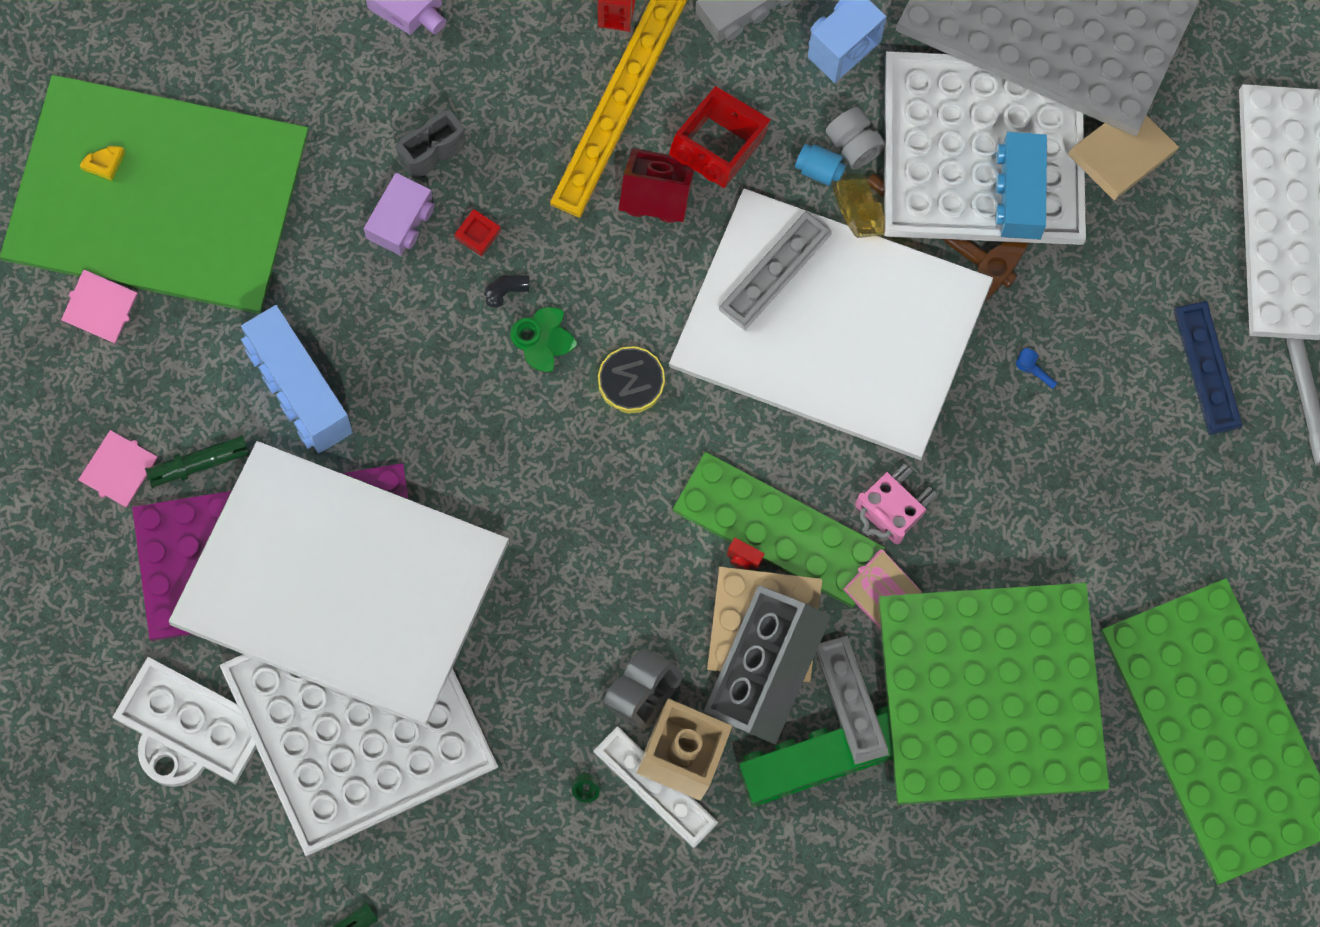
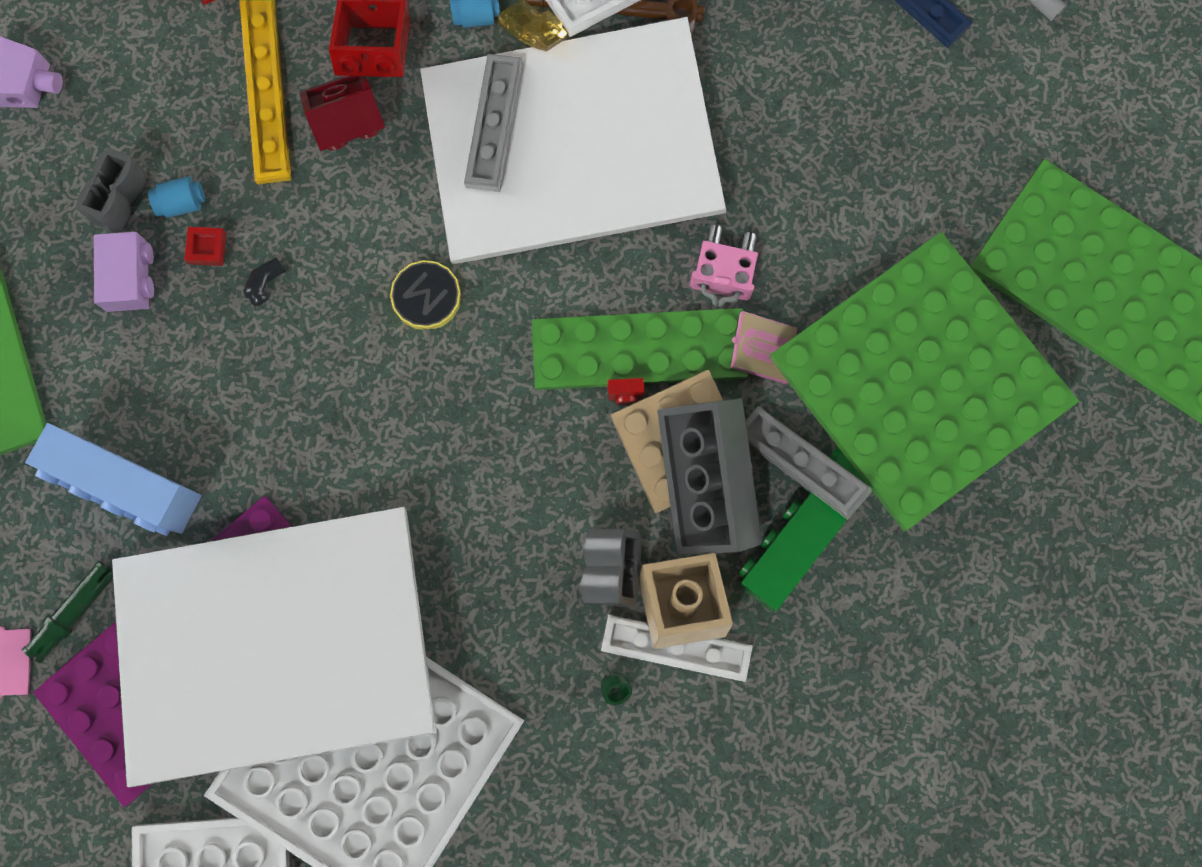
camera: 30 degrees left, 5 degrees up
(479, 178) = (176, 197): none -> dark azure brick
(548, 338) = (328, 305): green plate -> none
(1026, 362) = (759, 77): blue hand -> none

